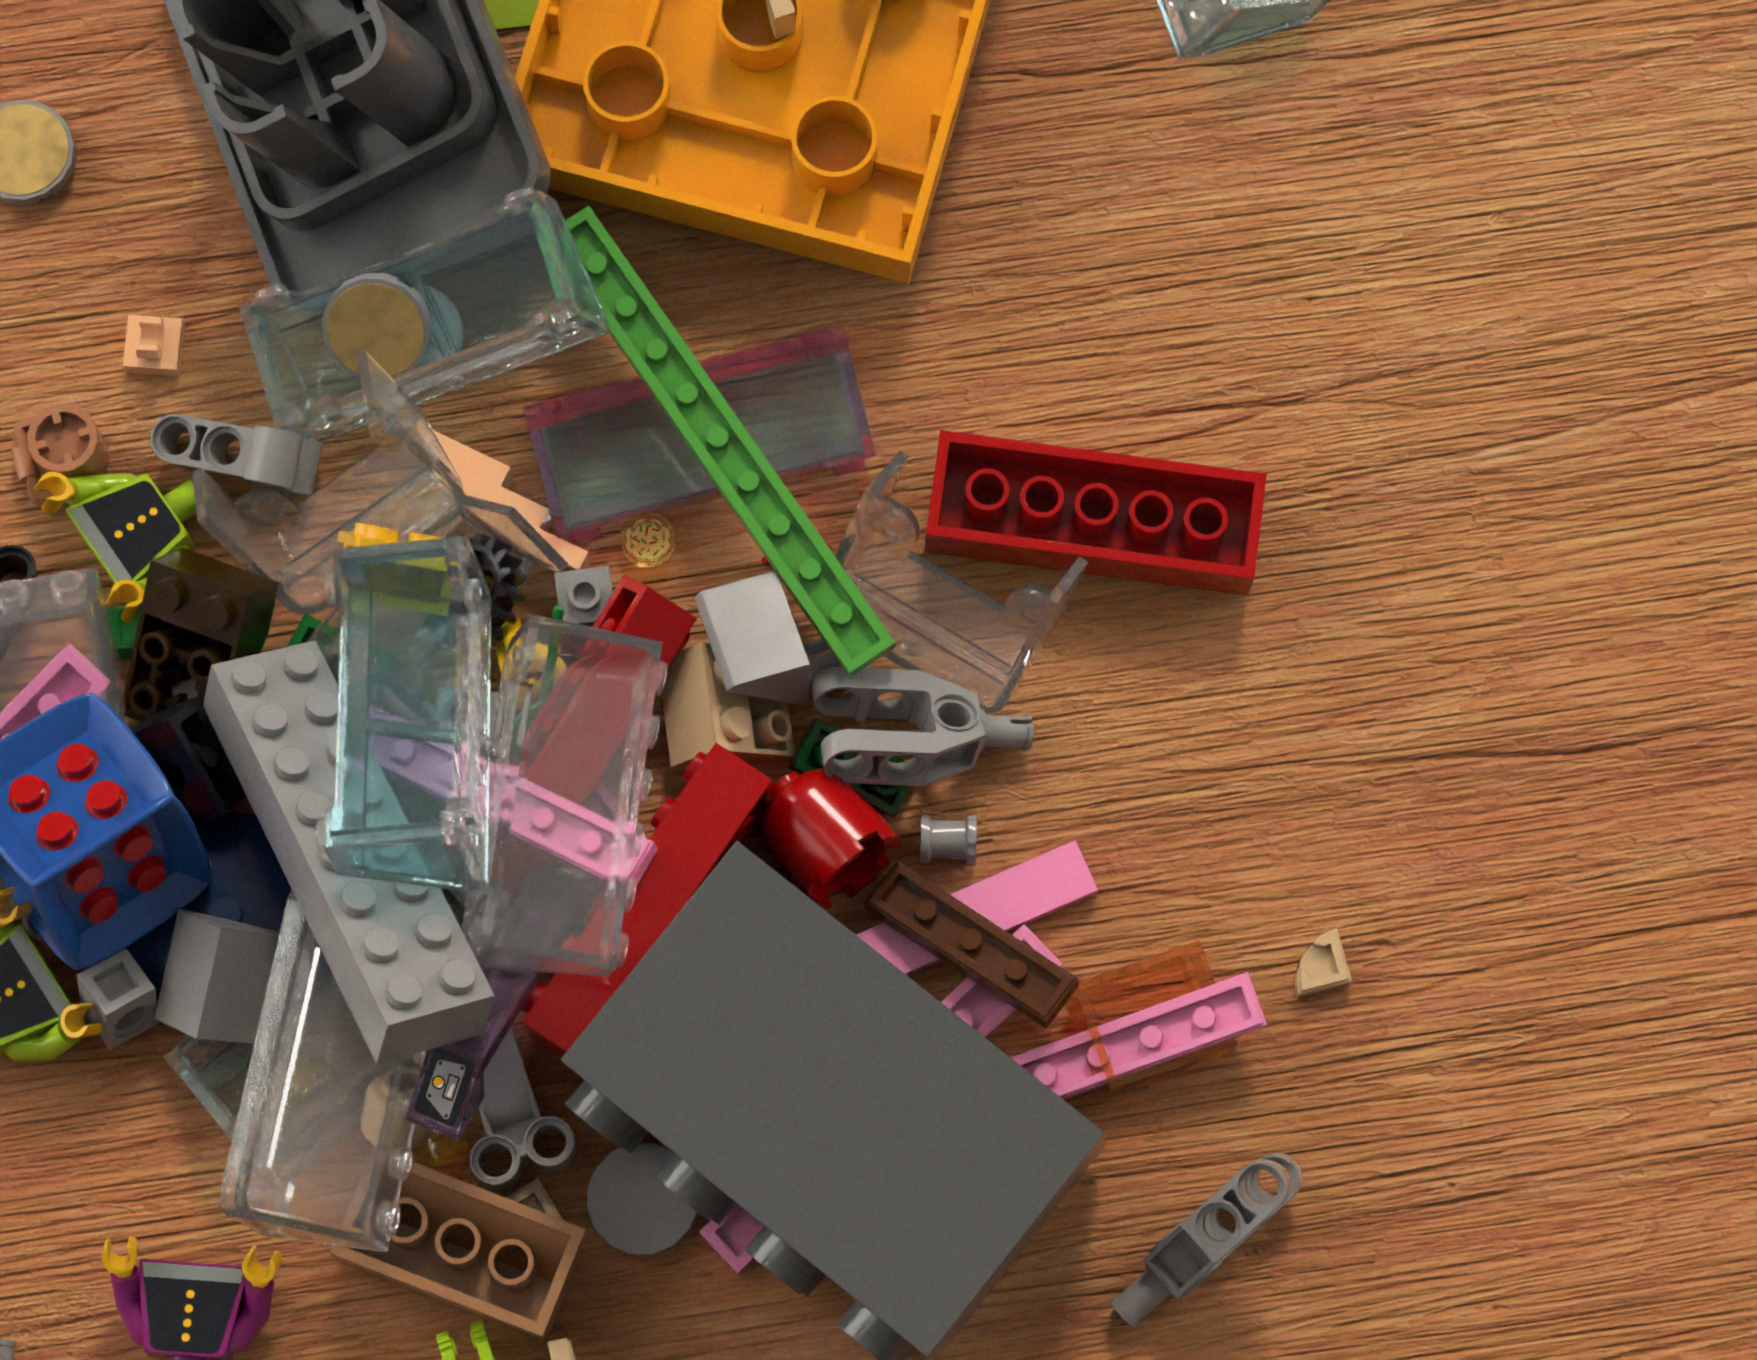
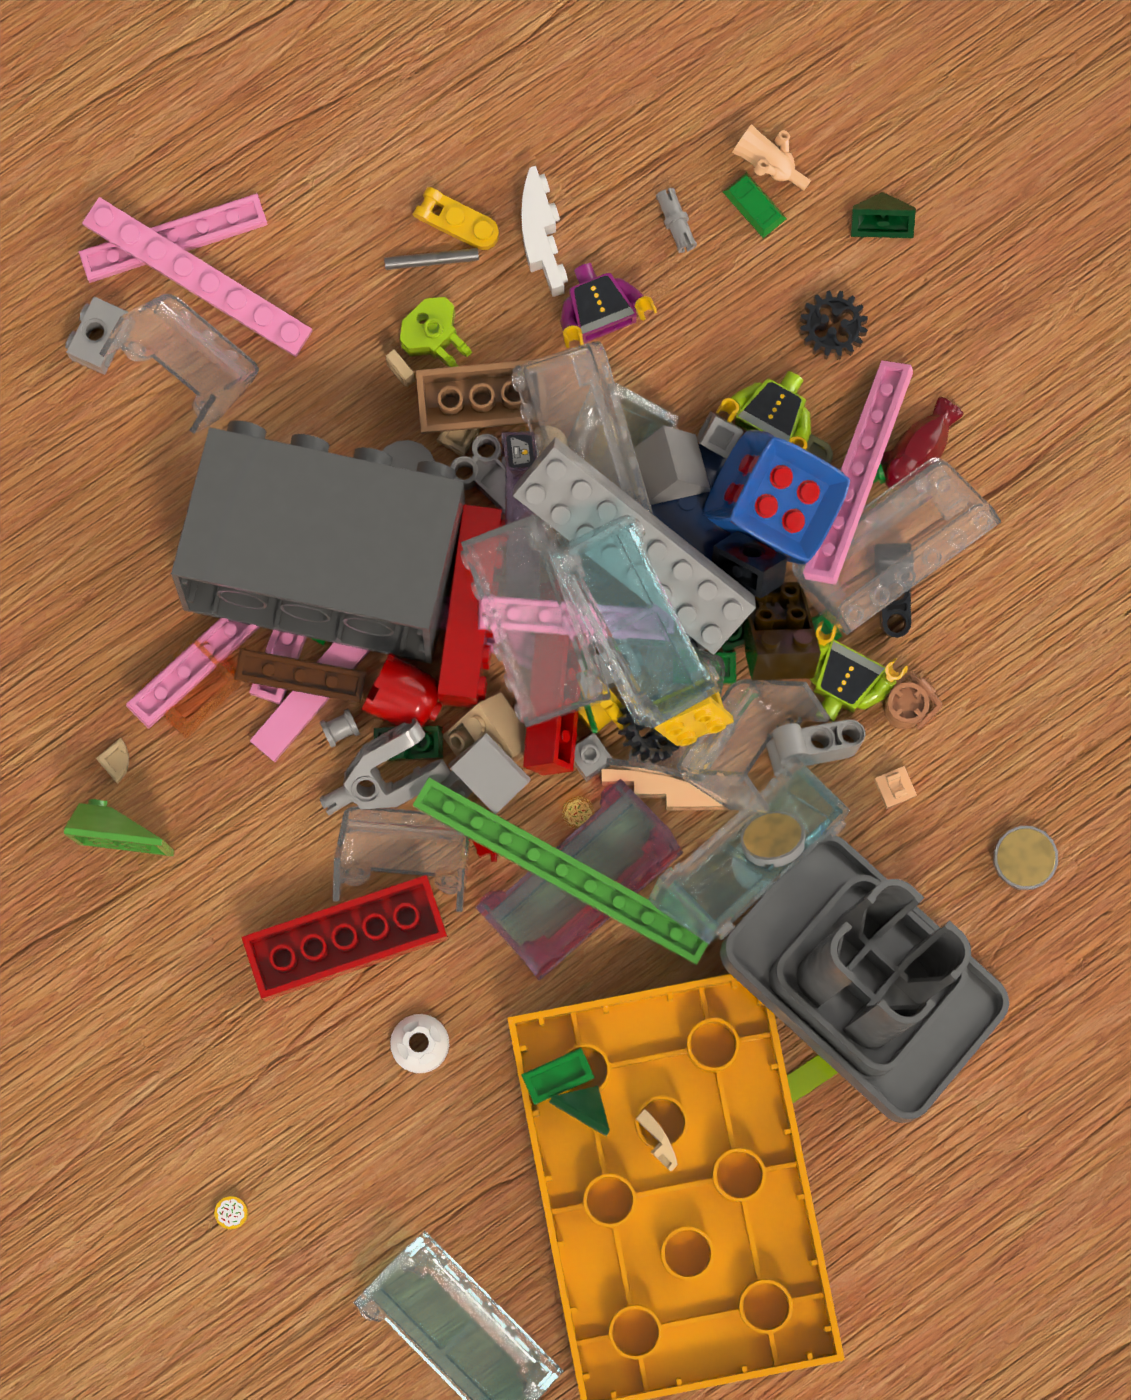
camera: 160 degrees right, 5 degrees up
(863, 76) = (584, 1106): none -> dark green slope
(878, 141) = (557, 1076): none -> green tile
(1054, 346) = (419, 1061): none -> white piece
(1200, 1241) = (113, 577): light grey piece -> none
(1375, 833) = (107, 828): none -> bright green slope
(1453, 216) = (231, 1212): none -> tile

